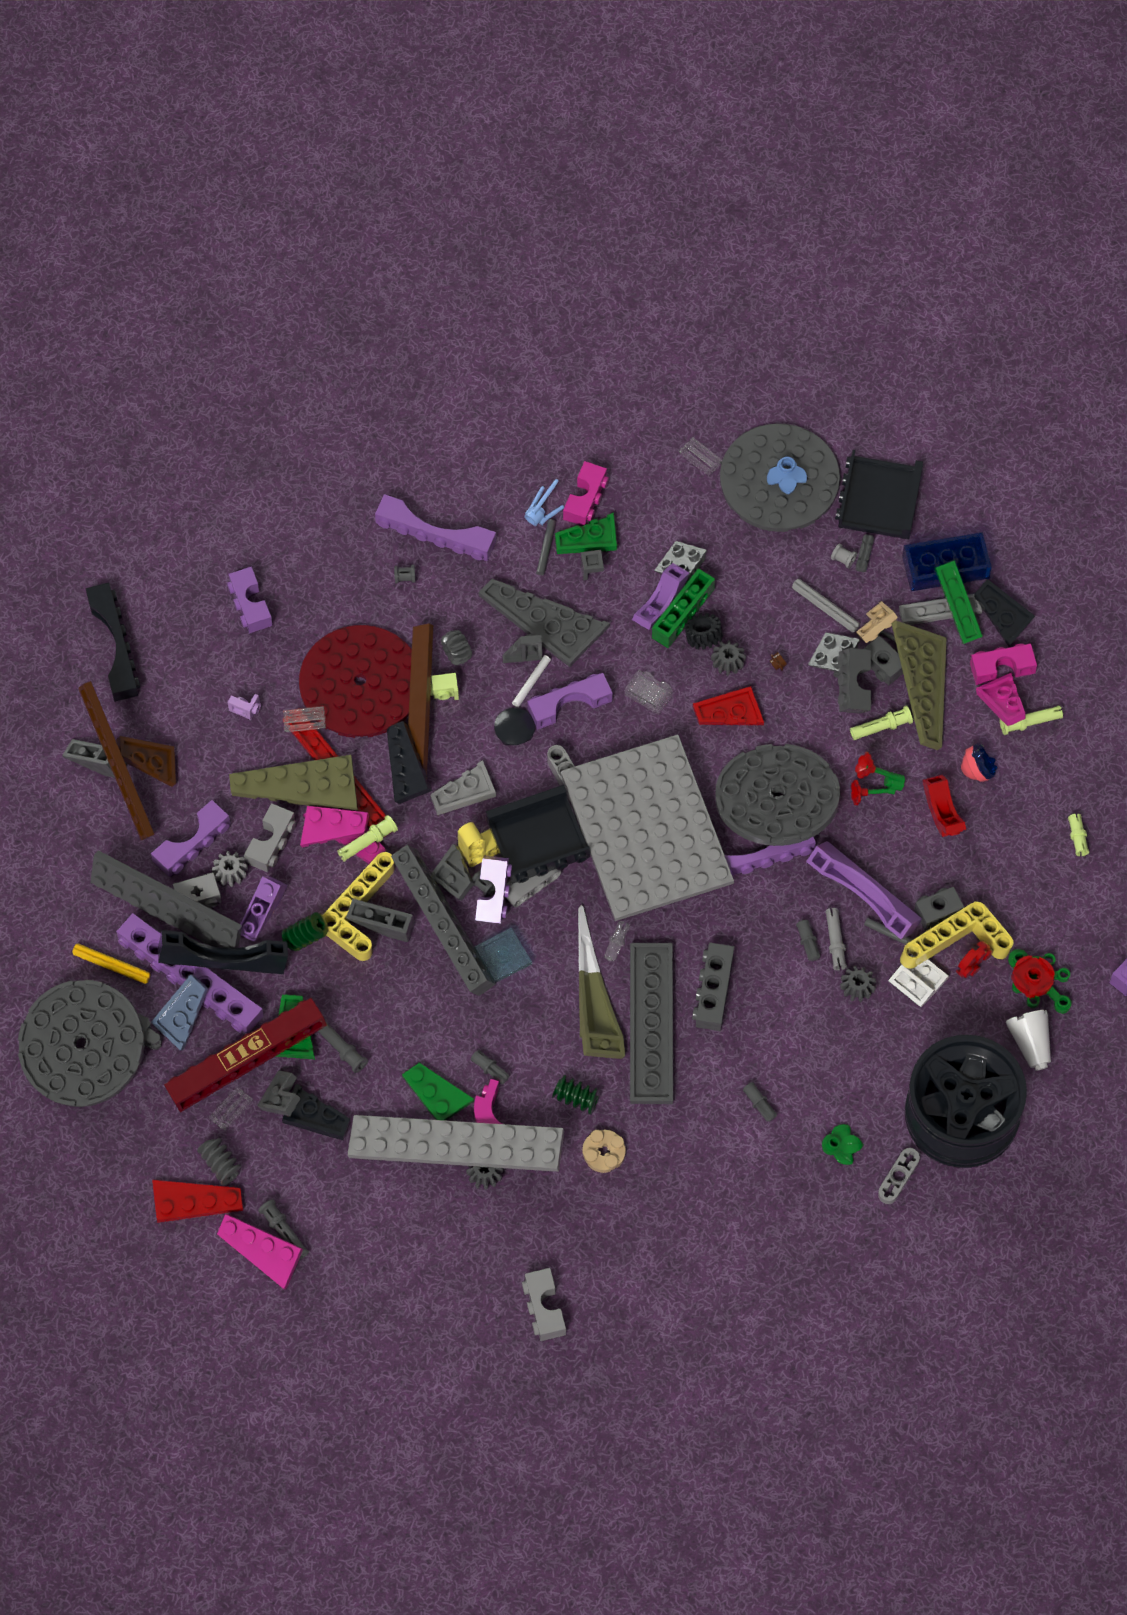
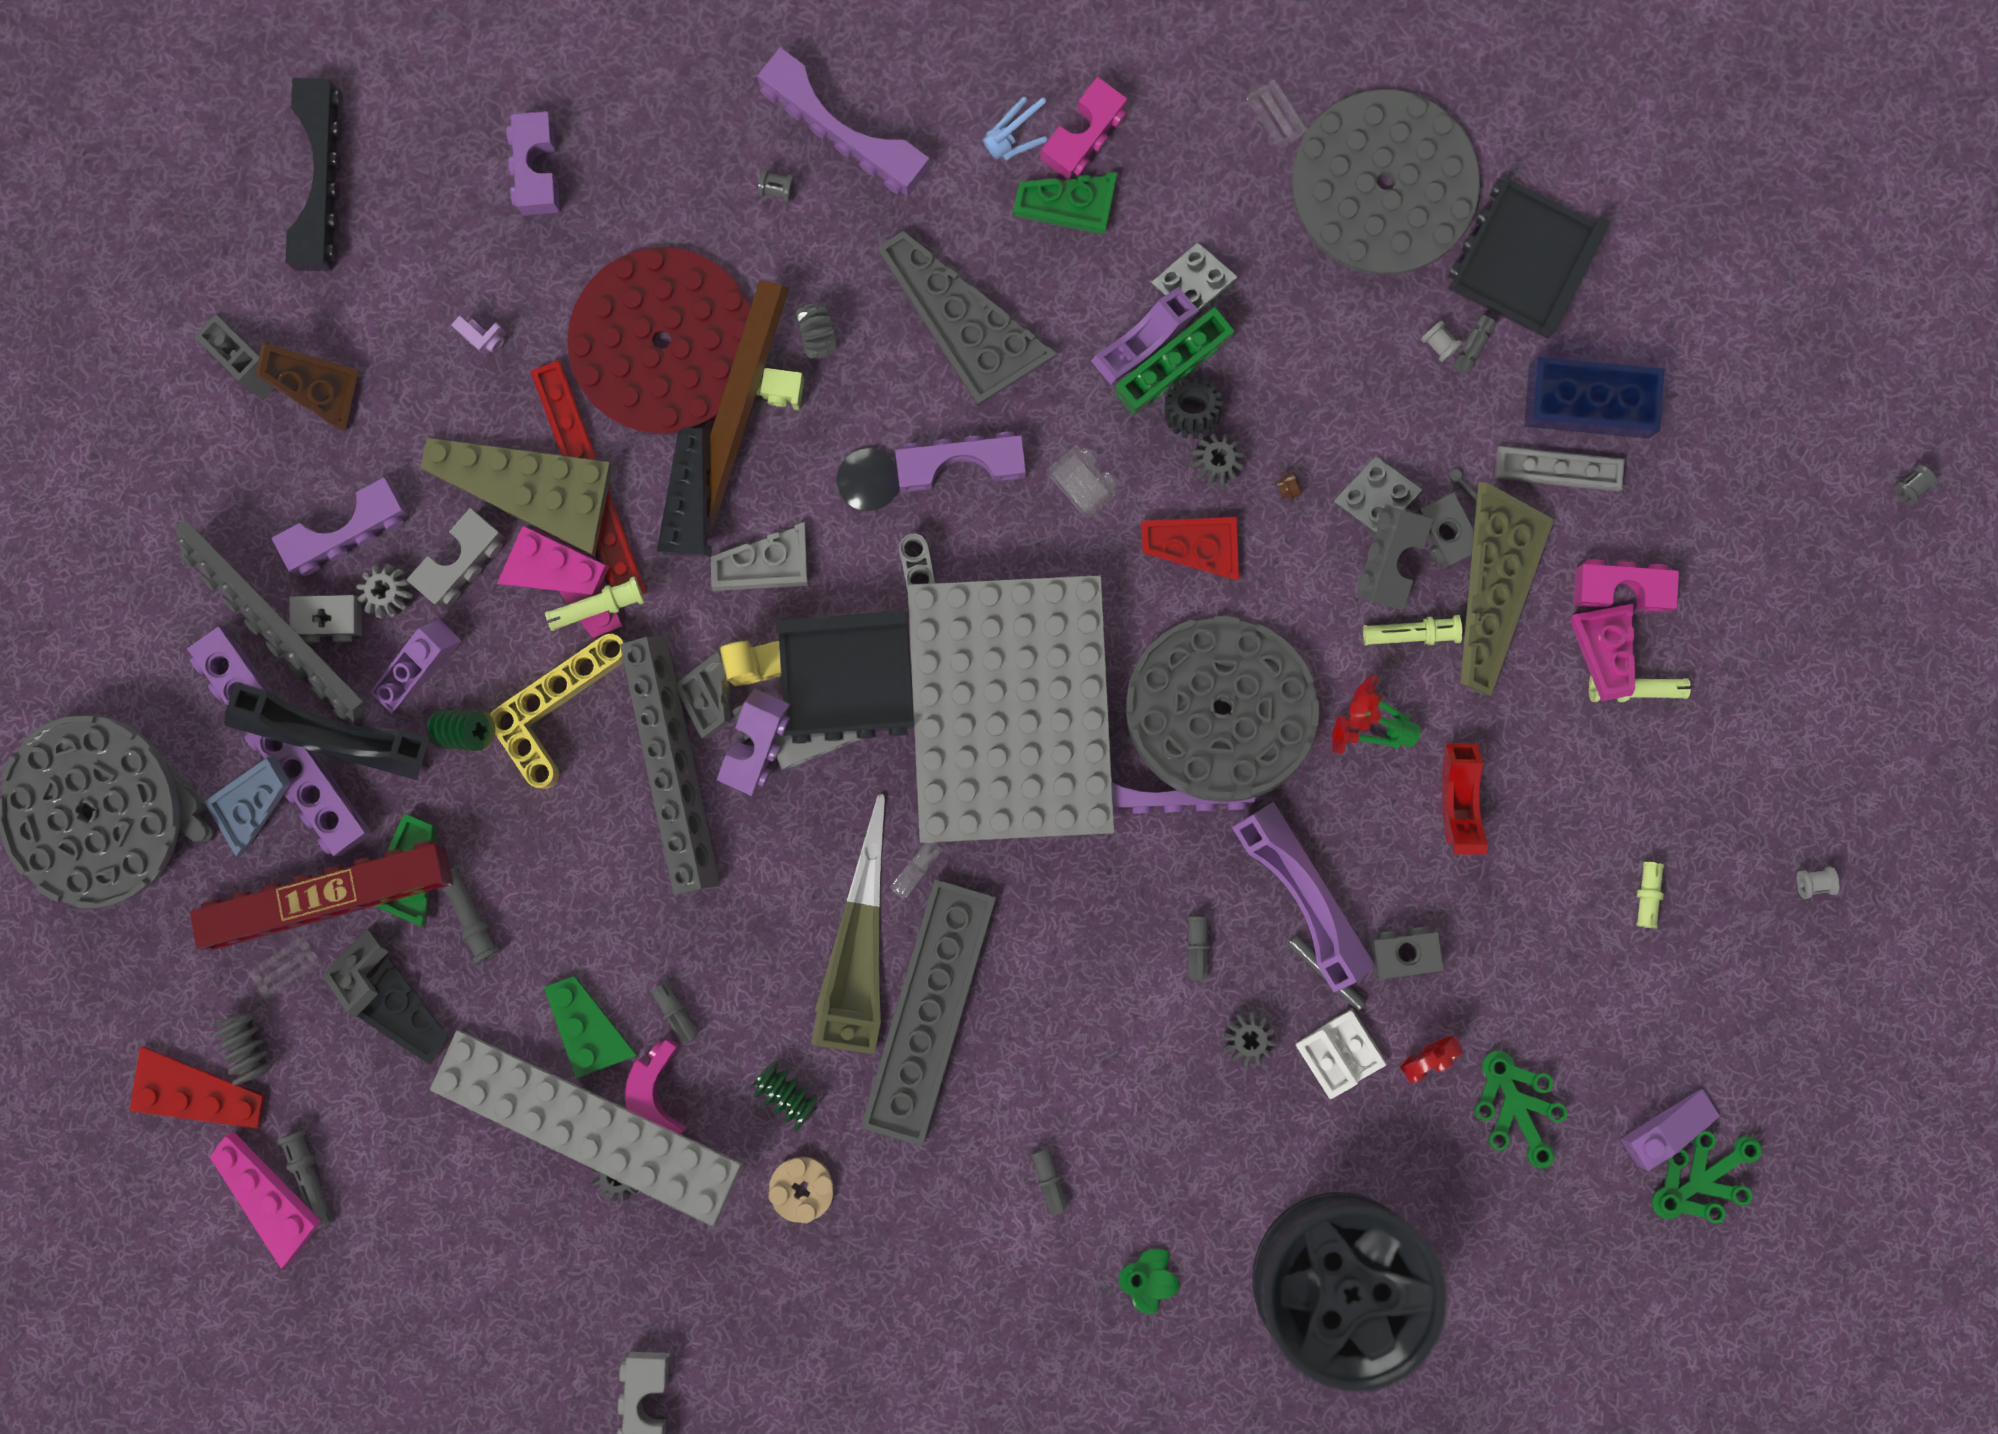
camera: 15 degrees right, 20 degrees up
(111, 963) = (174, 689): yellow axle -> none
(116, 760) = (248, 379): reddish brown tile -> none
(305, 711) = (533, 377): clear tile -> none
(381, 919) = (578, 740): dark grey slope -> none
(503, 955) = (744, 842): clear light blue plate -> none
(524, 649) = (917, 363): dark grey wing -> none
(531, 681) = (914, 412): white bar -> none
(546, 547) = (1000, 199): dark grey bar -> none
(591, 562) = (1058, 248): dark grey panel -> none
(715, 955) = (1023, 1031): dark grey brick -> none
(784, 477) = (1395, 190): medium blue plate -> none
(825, 605) = (1389, 414): light grey axle -> none
(836, 946) = (1238, 957): light grey pin -> none
(880, 618) = (1465, 469): tan plate -> none
(896, 1167) = (1192, 1363): light grey beam -> none
(958, 602) = (1591, 472): green plate -> none
(970, 923) = (1415, 1003): light yellow beam -> none
(978, 764) = (1537, 741): hair -> none
(1003, 611) = (1653, 502): black wing -> none
(1030, 986) = (1528, 1114): red plate -> none
(1032, 1037) = (1479, 1201): white cone -> none

